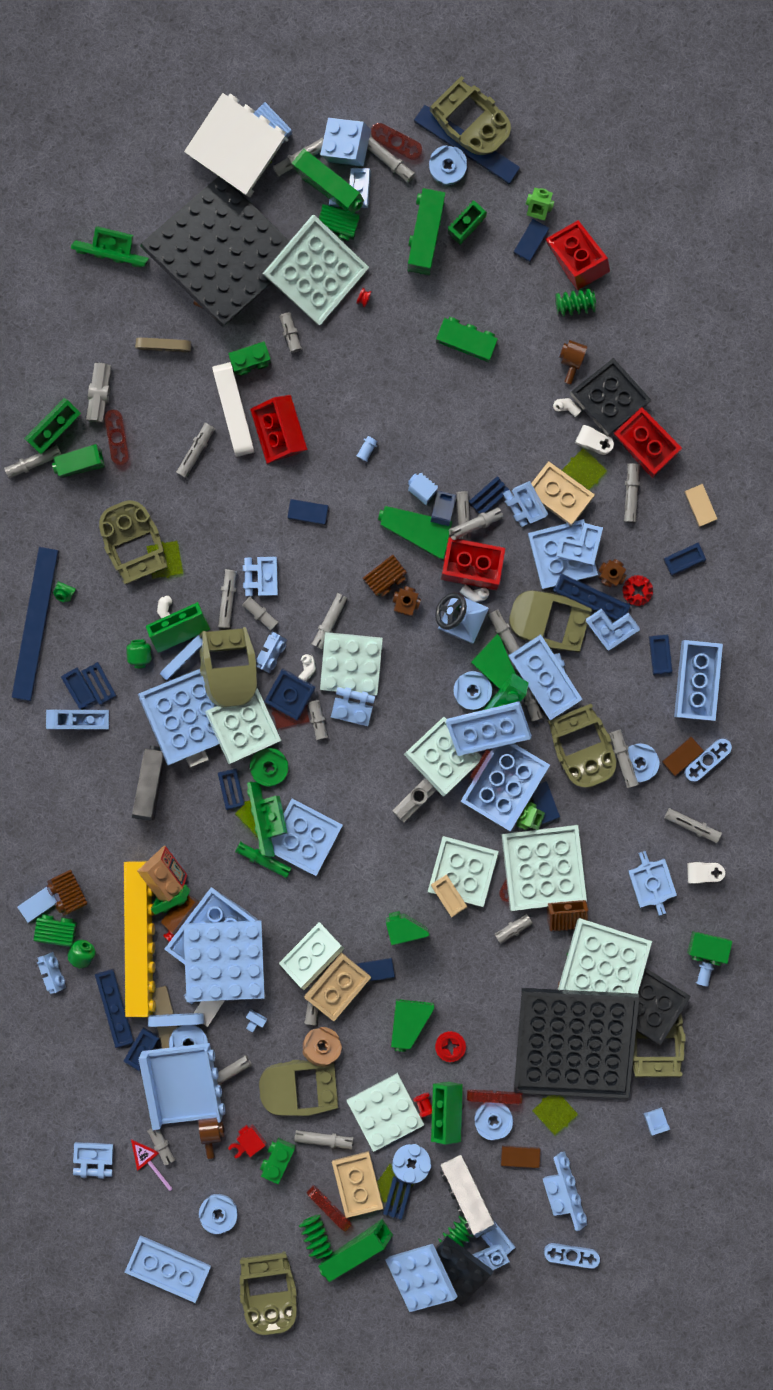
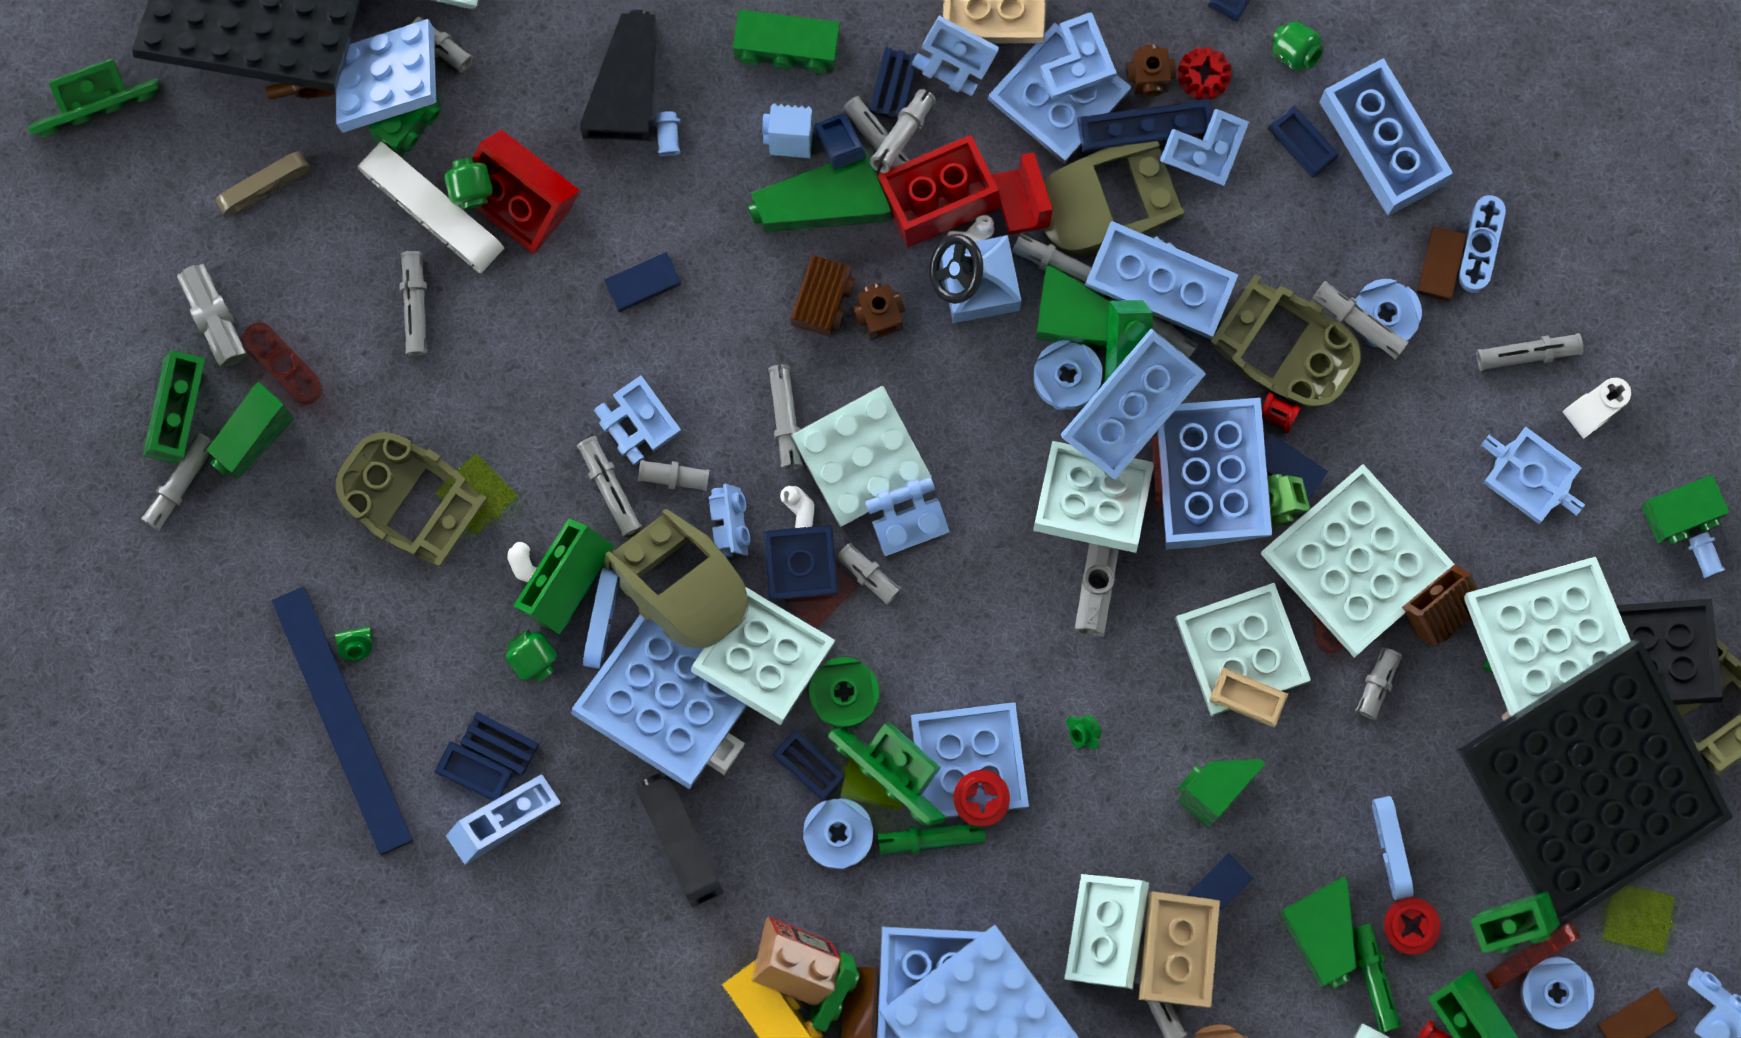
camera: 35 degrees left, 10 degrees down
(213, 823) = (838, 854): none -> light blue plate
(253, 334) = (387, 76): none -> light blue plate
(256, 412) = (468, 184): none -> green head
(299, 867) = (993, 786): none -> red gear
(362, 412) = (624, 87): none -> black slope
(365, 859) = (1084, 731): none -> green plate
(420, 1050) = (1374, 973): none -> green pin
(452, 442) = (786, 41): none -> green brick
(465, 1009) = (1391, 840): none -> light blue beam
(495, 1078) = (1515, 922): none -> green brick
(510, 592) = (1024, 197): none -> red panel
(557, 774) = (1280, 406): none -> red bush
(689, 608) = (1297, 46): none -> green head

